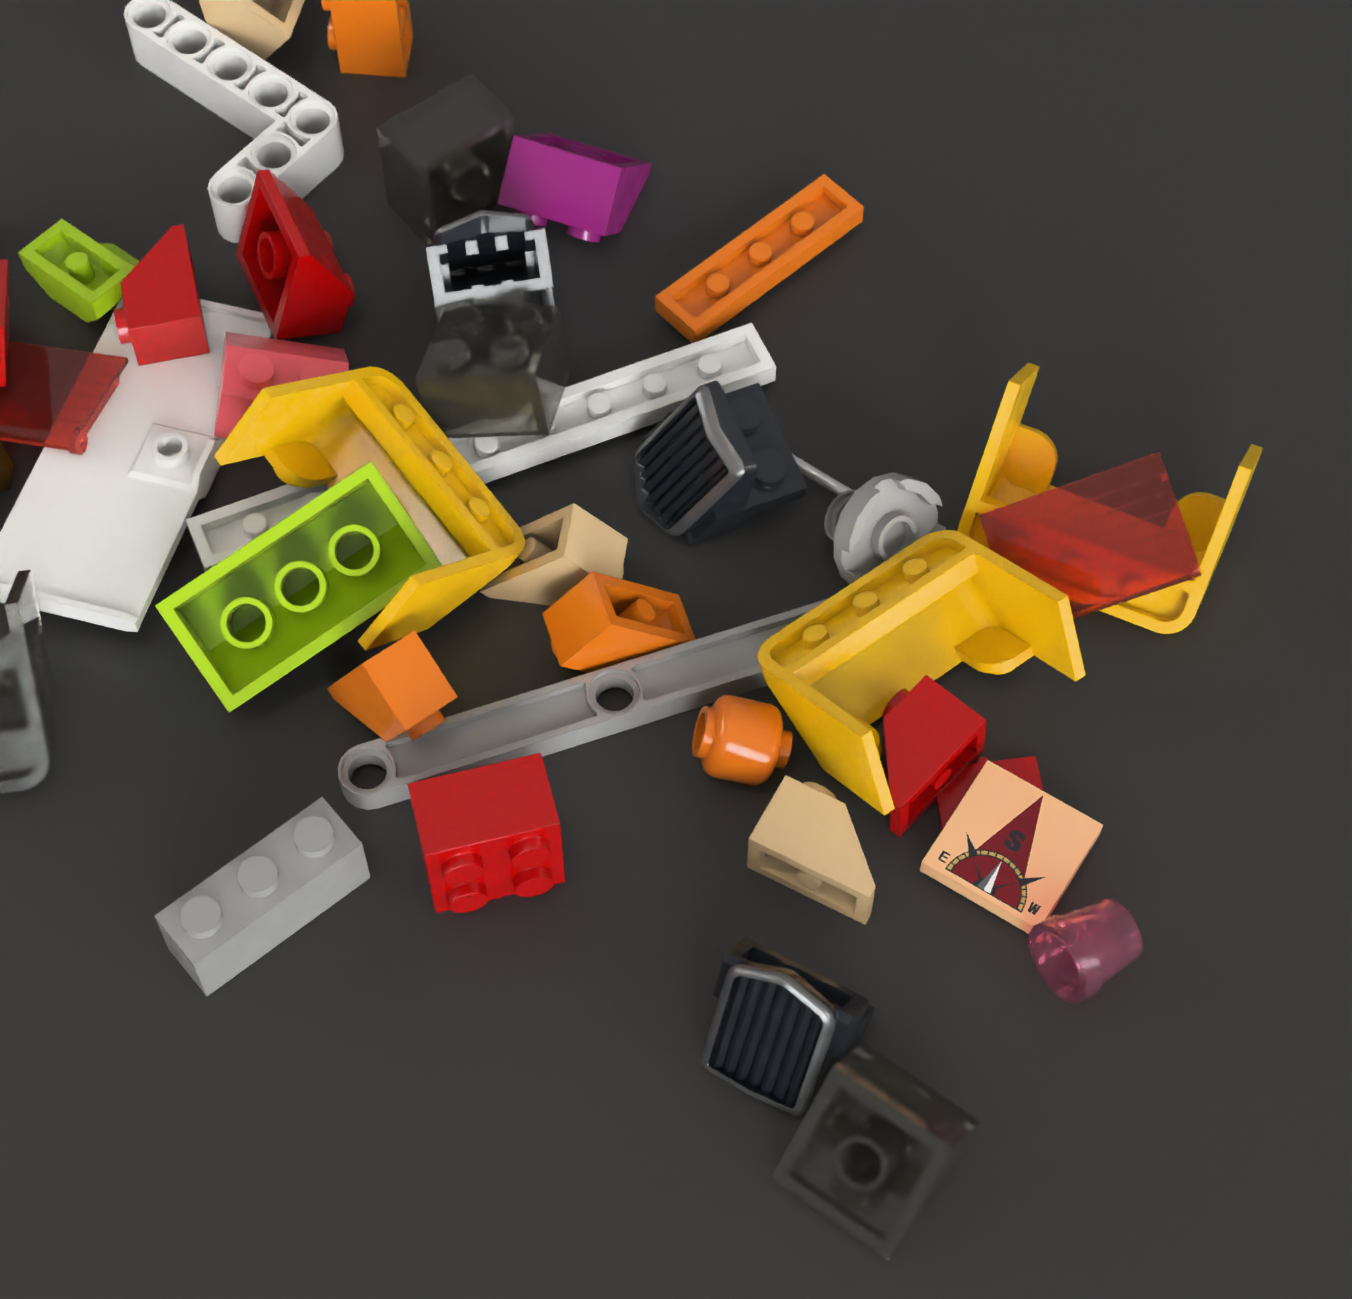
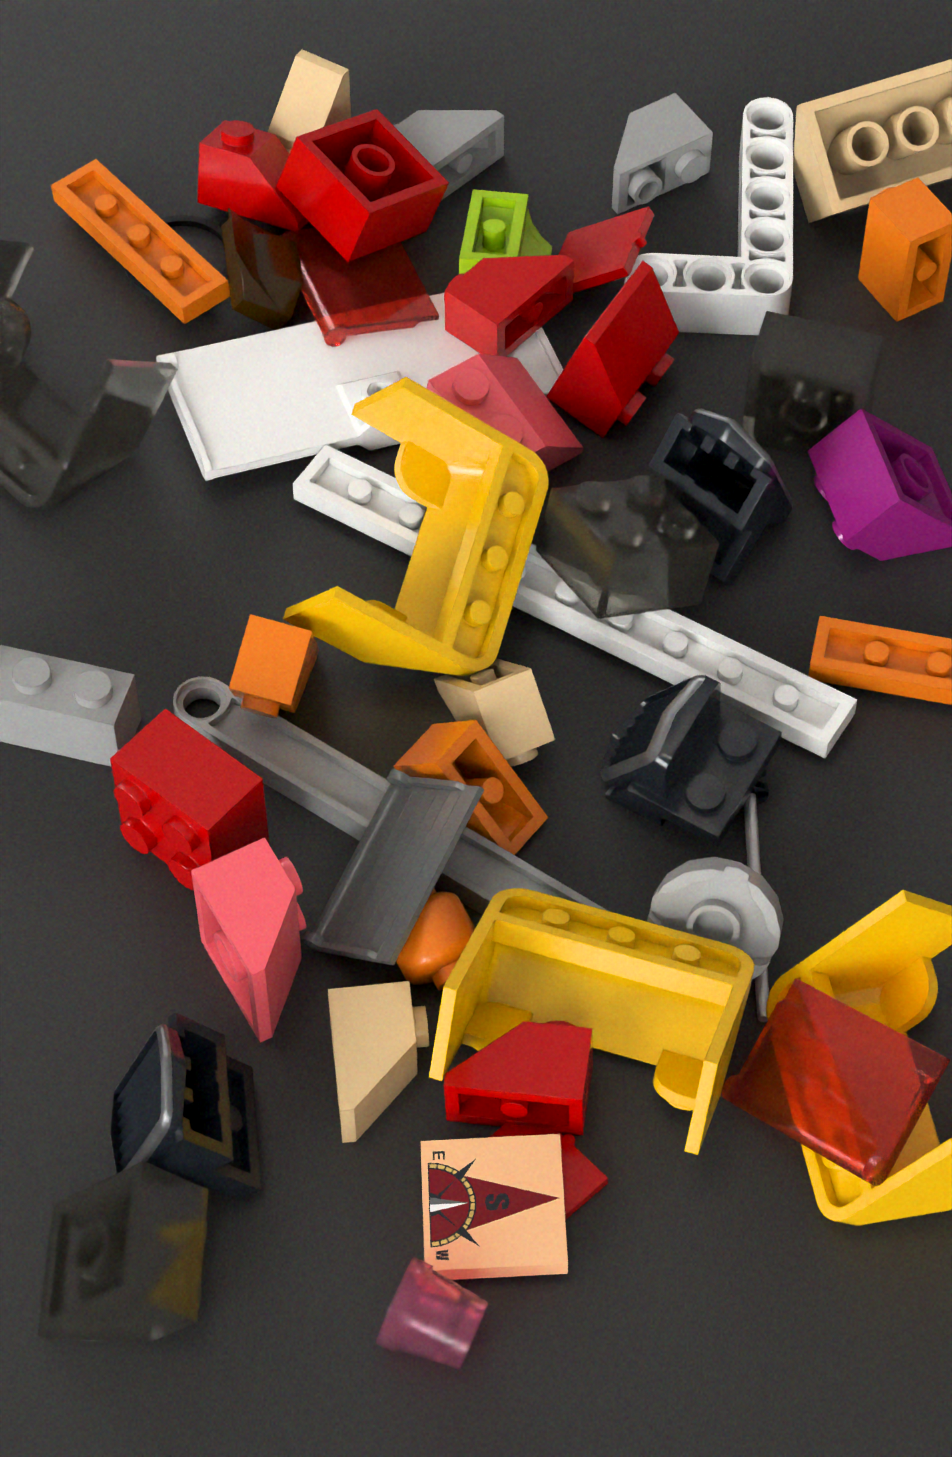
camera: 55 degrees right, 5 degrees down
(100, 107) = (659, 152): none -> light grey slope
(170, 196) = (607, 248): none -> red piece
(298, 586) = (305, 536): lime slope -> none
(656, 862) = (252, 928): none -> coral slope
(670, 721) = (394, 868): none -> dark grey piece

